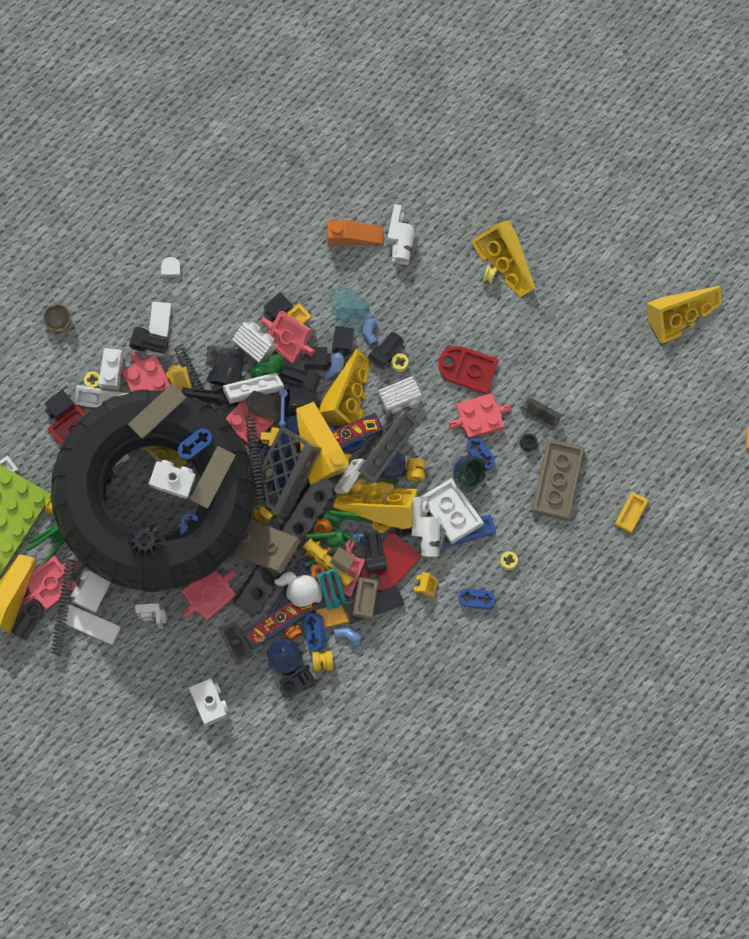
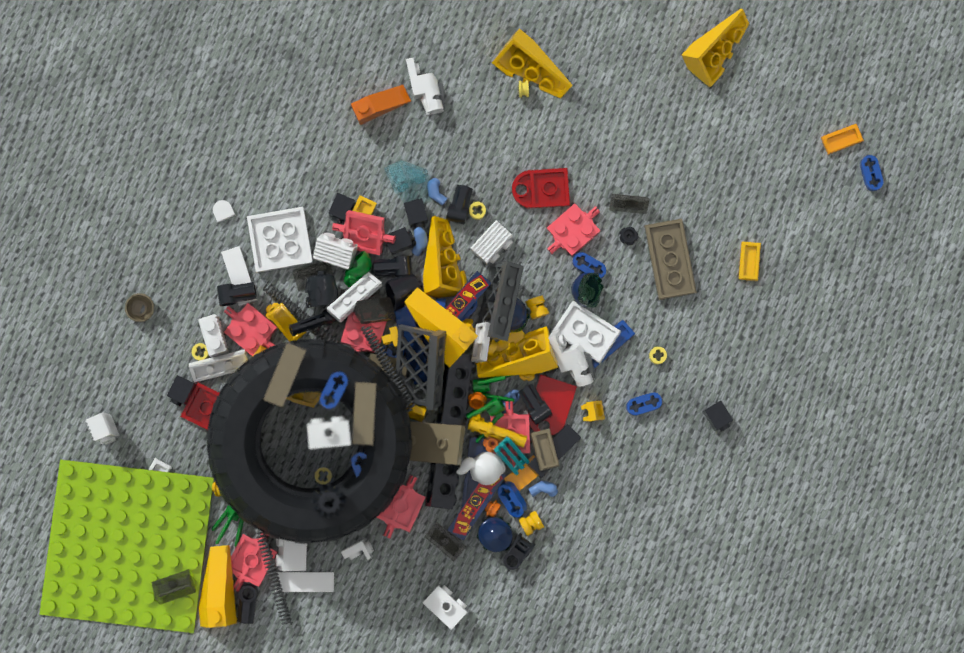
camera: 20 degrees left, 10 degrees up
(209, 313) = (279, 239): none -> white plate
(283, 393) = (384, 290): medium blue hinge -> none
(342, 560) = (509, 425): dark tan tile -> none
(541, 639) = (718, 416): none -> black brick

